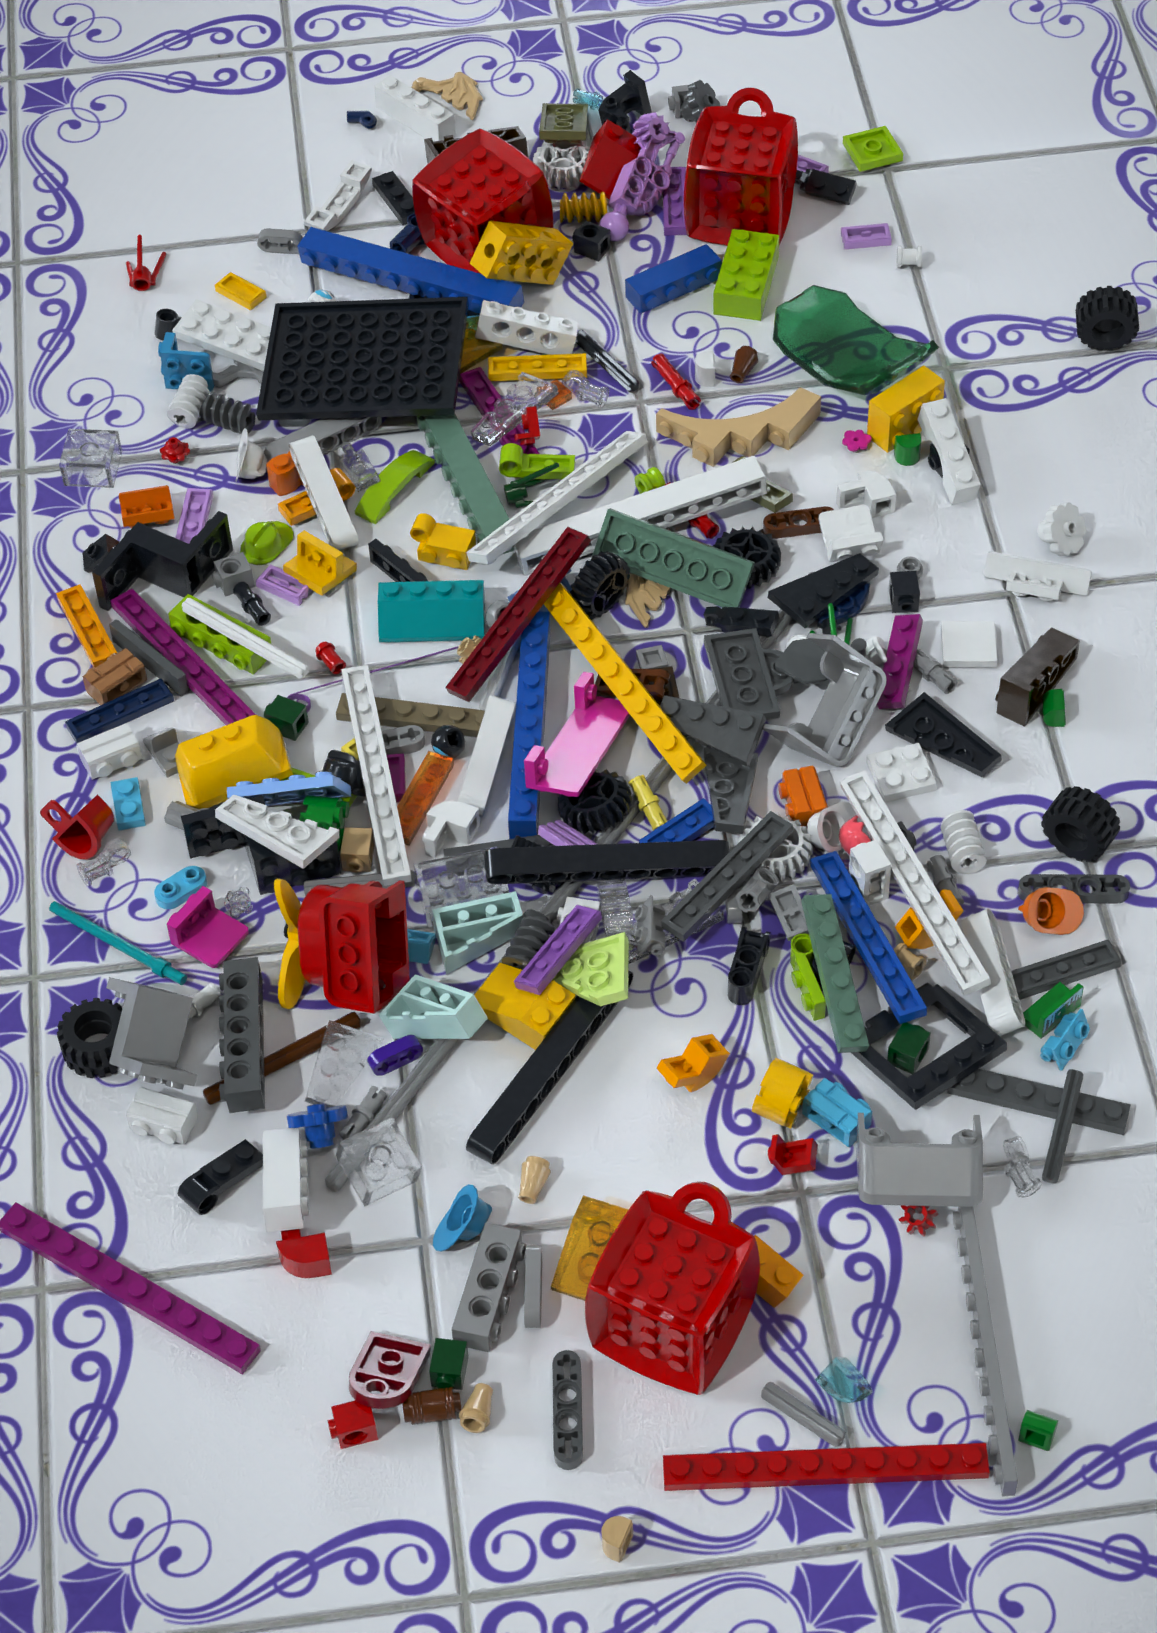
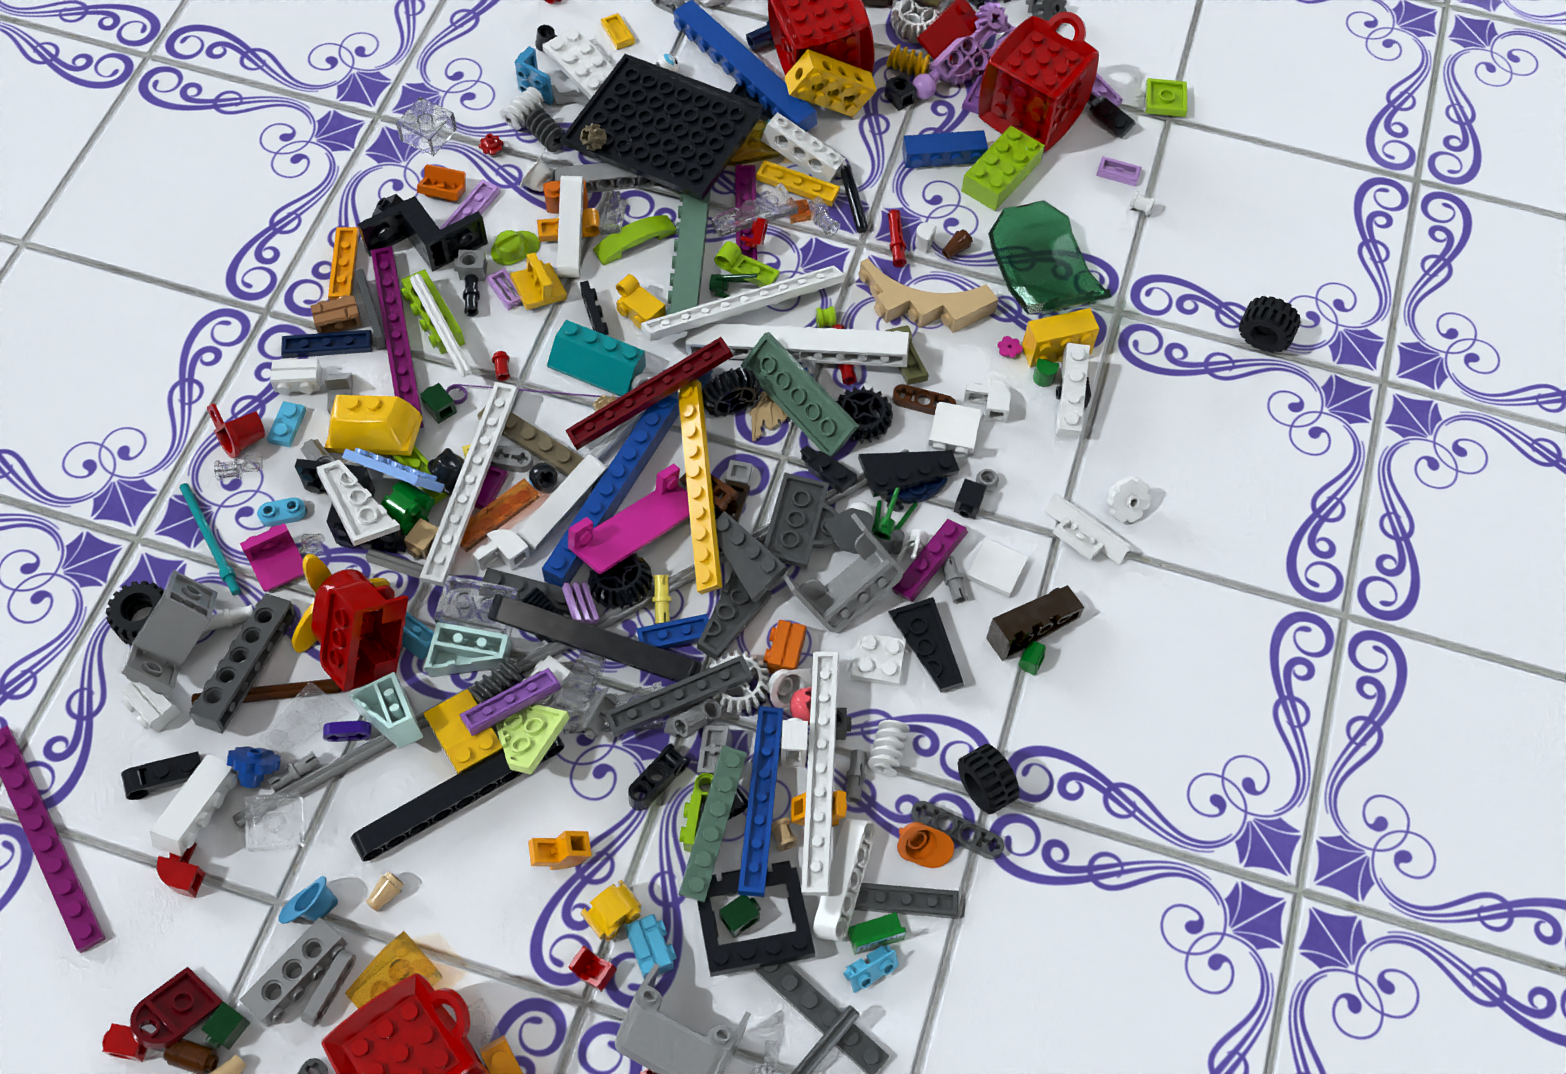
camera: 20 degrees right, 10 degrees up
(298, 394) = (593, 137): none -> dark tan gear

